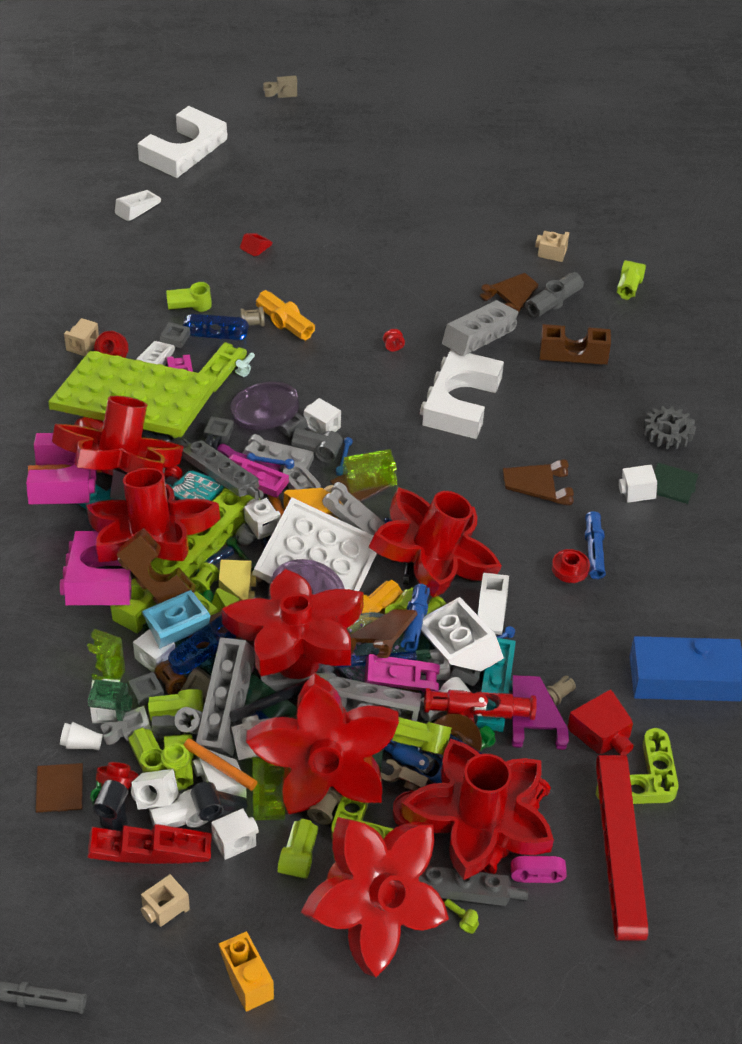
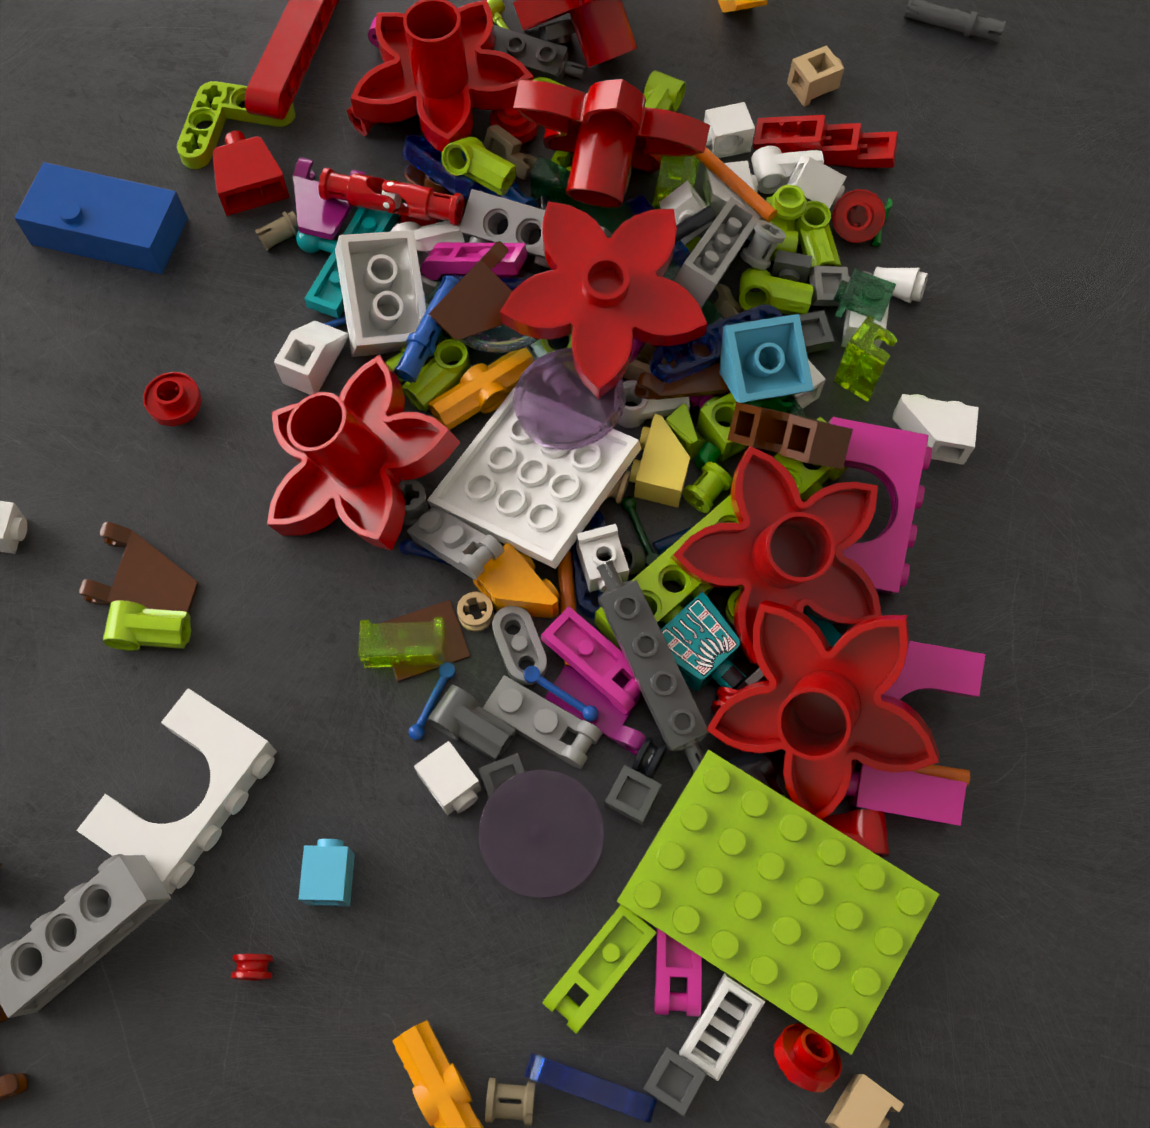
camera: 165 degrees left, 20 degrees up
(49, 640) = (948, 424): none -> white slope
(59, 787) = (926, 240): reddish brown window -> none
(111, 805) = (872, 160): black piece -> none
(213, 803) = (753, 144): black piece -> none
(243, 366) = (560, 960): light aqua hand -> none
(371, 374) = (327, 874): none -> medium azure brick
(527, 453) = (134, 626): none -> lime piece
(594, 536) = (99, 473): blue pin -> none

